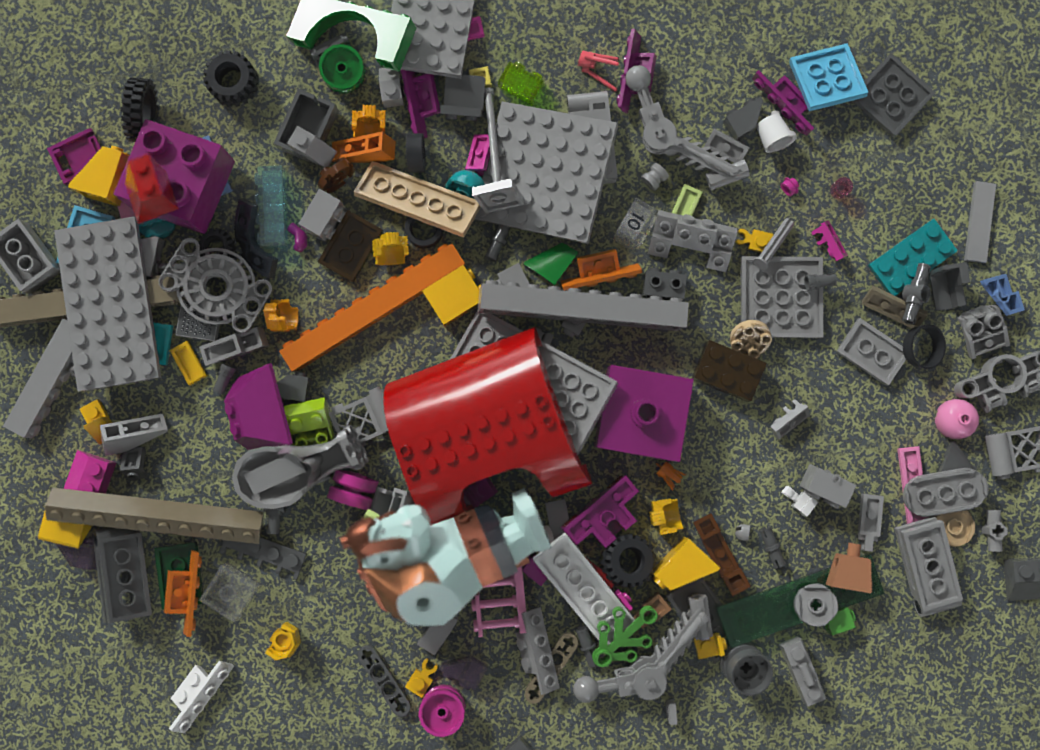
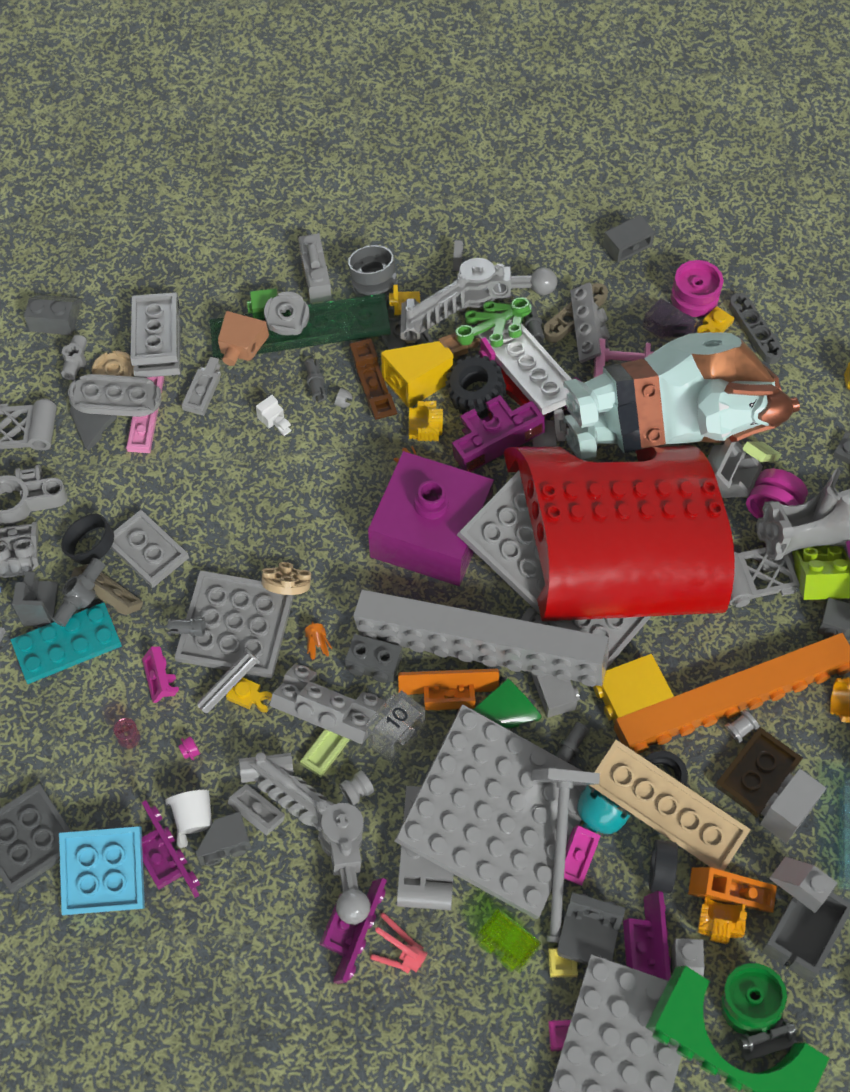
camera: 170 degrees left, 25 degrees down
(301, 237) = (825, 801): magenta arm -> none
(333, 177) = (778, 849): reddish brown plate -> none
(366, 280) = (742, 726): none -> light grey bush
(390, 249) = (708, 758): yellow hair -> none
(715, 297) = (316, 636): none -> orange piece
(729, 371) = (322, 551): dark brown brick -> none
(785, 424) = (273, 491): light grey plate -> none
(824, 484) = (241, 419): light grey brick -> none
(957, 419) = (75, 466): bright pink cylinder -> none

